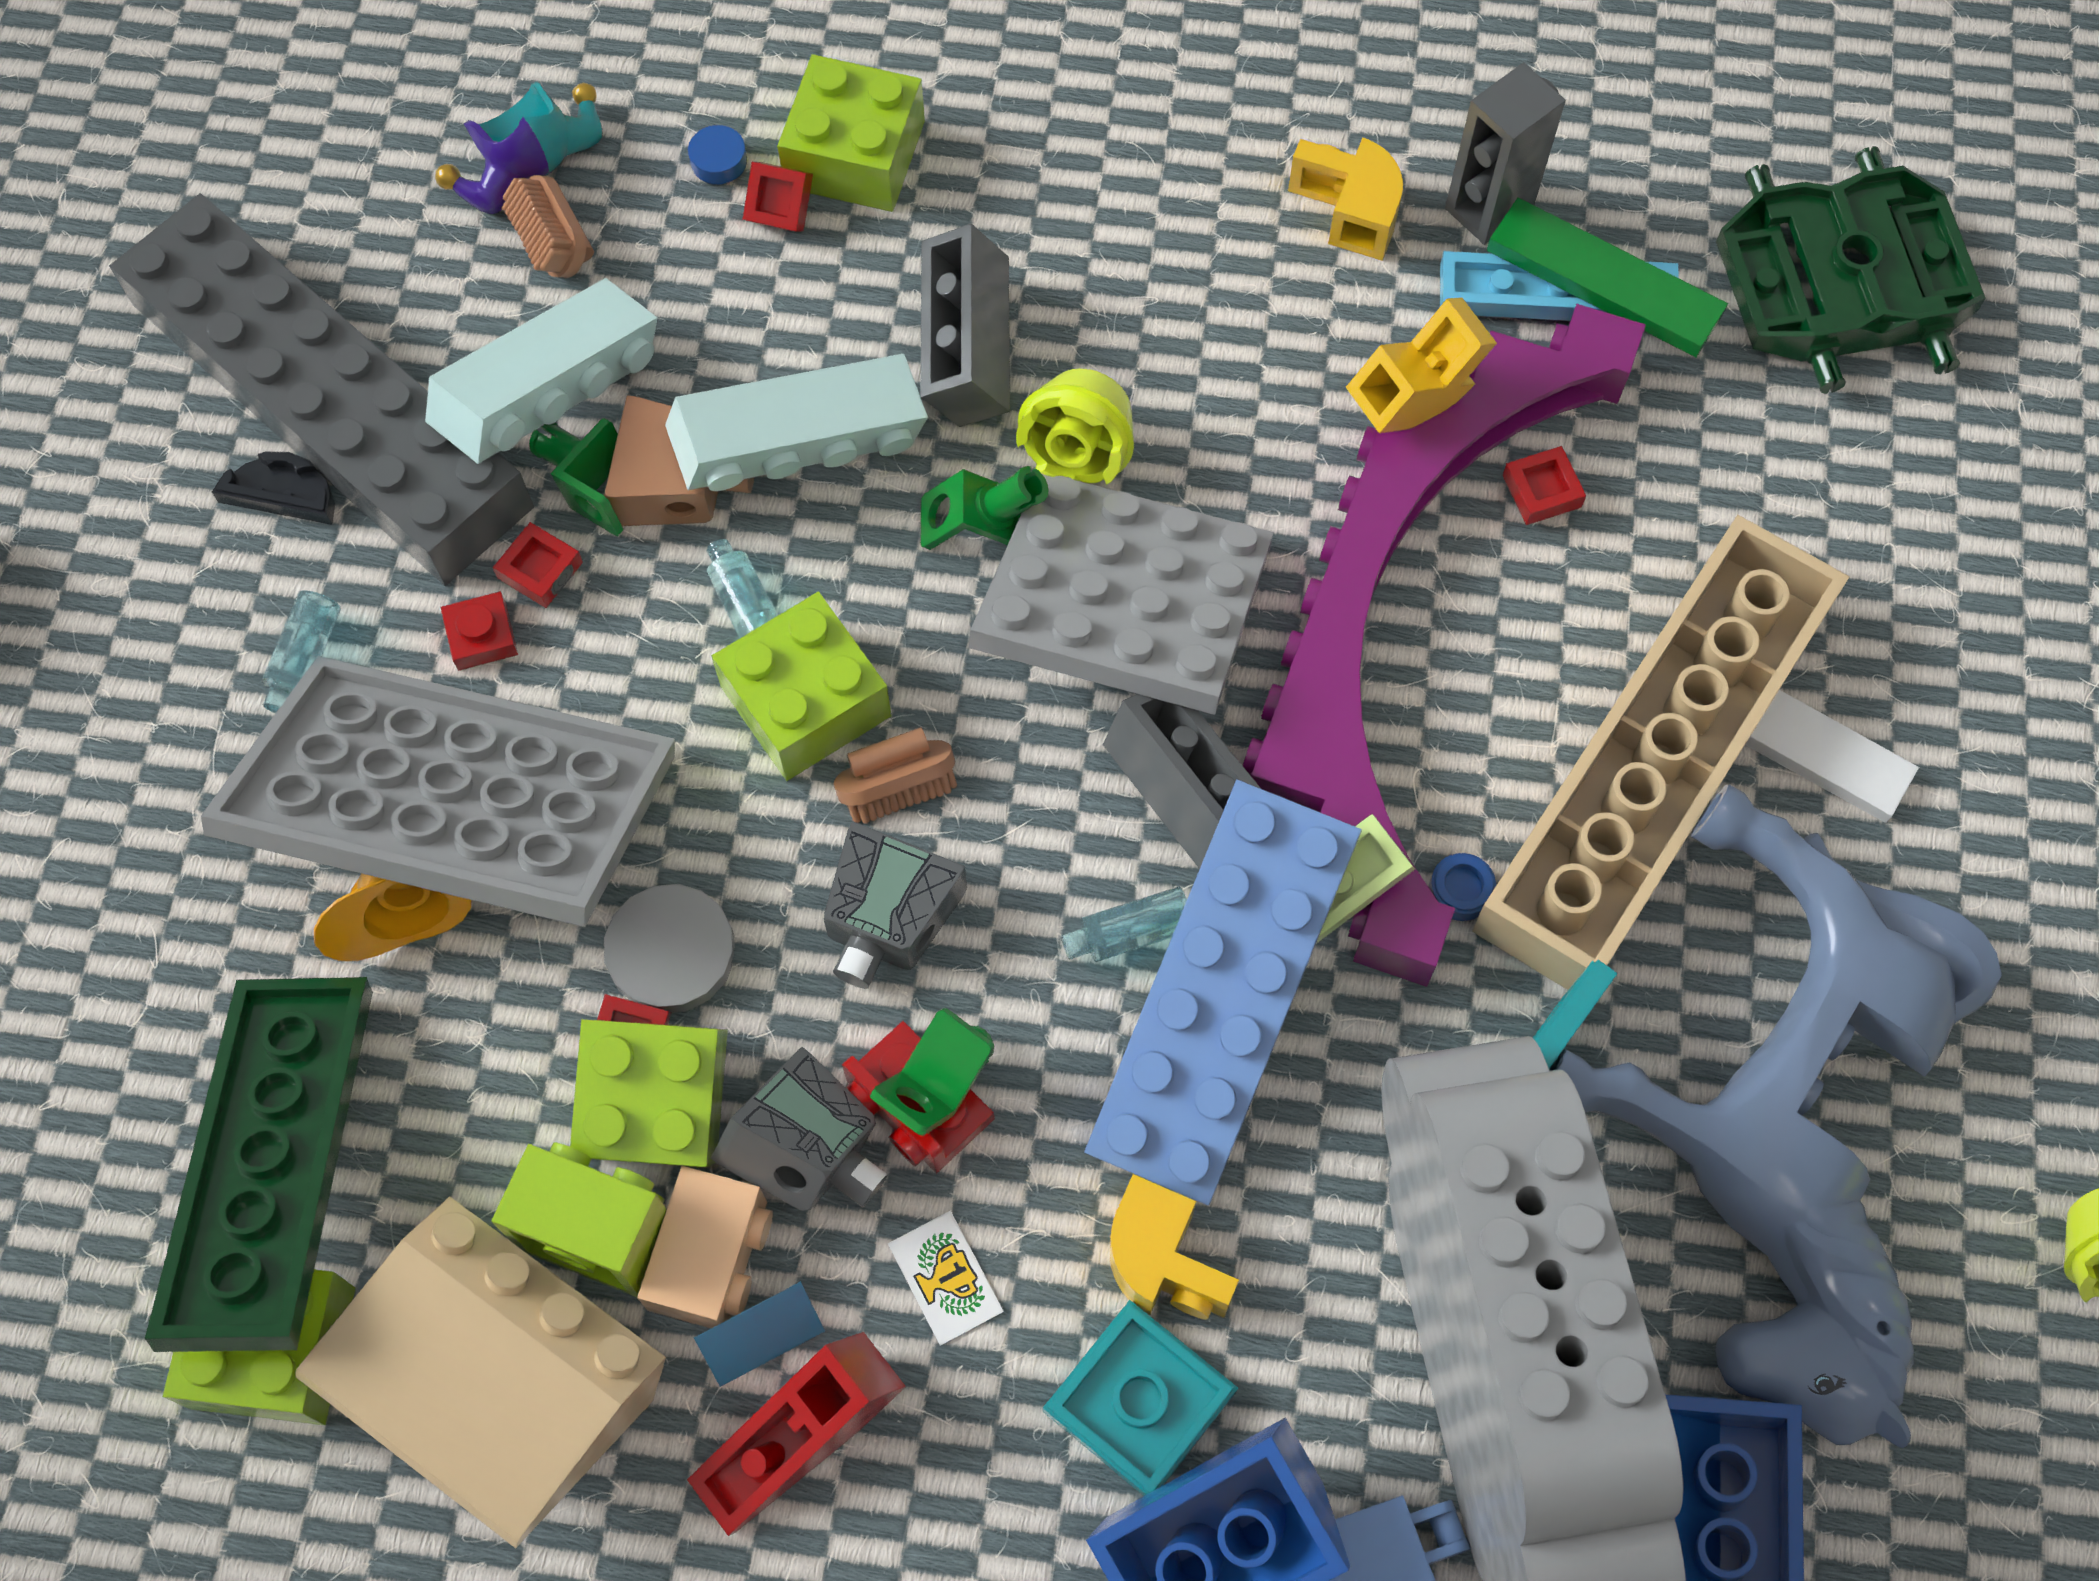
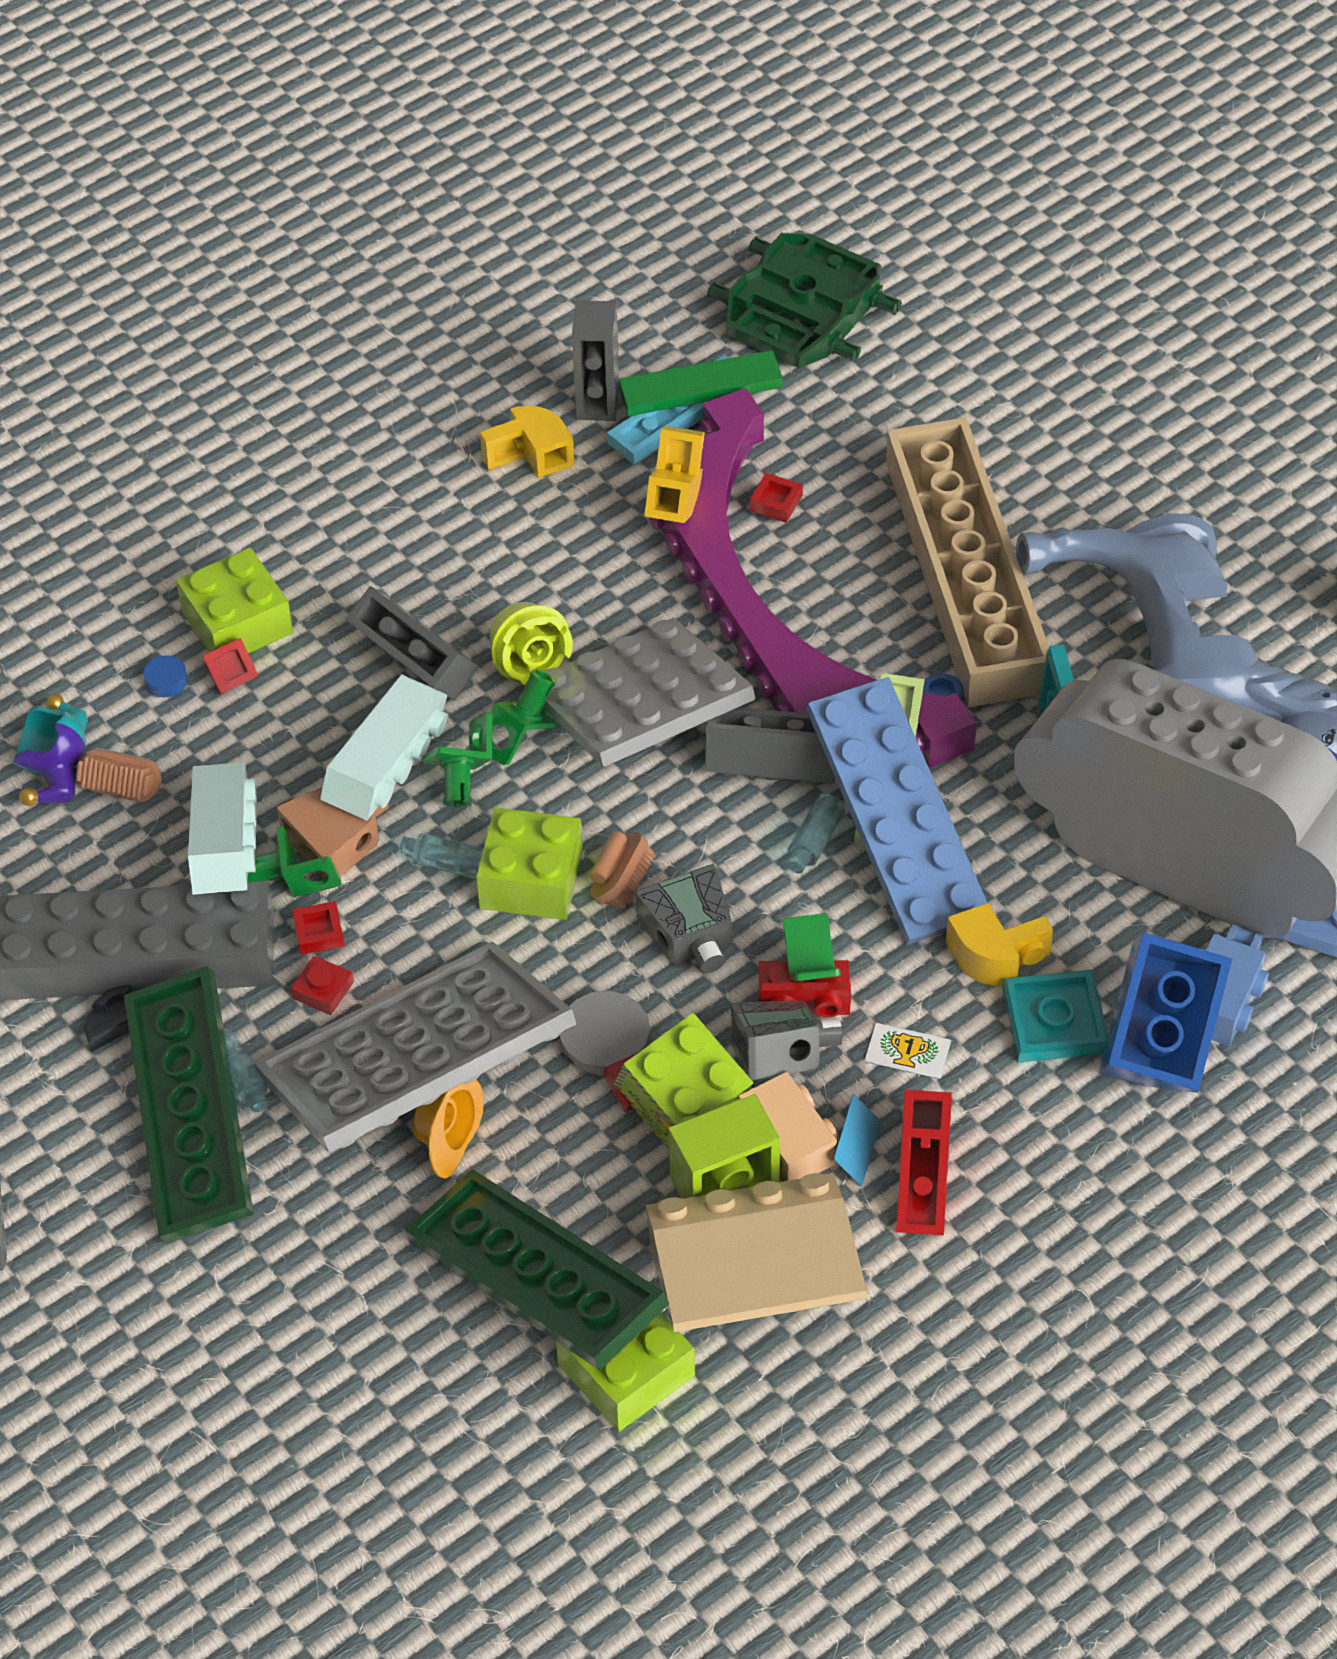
camera: 45 degrees left, 15 degrees down
(199, 646) = (188, 1105): none -> dark green plate
(859, 507) = (460, 762): none -> green bracket
(1832, 756) = (1043, 508): white tile -> none

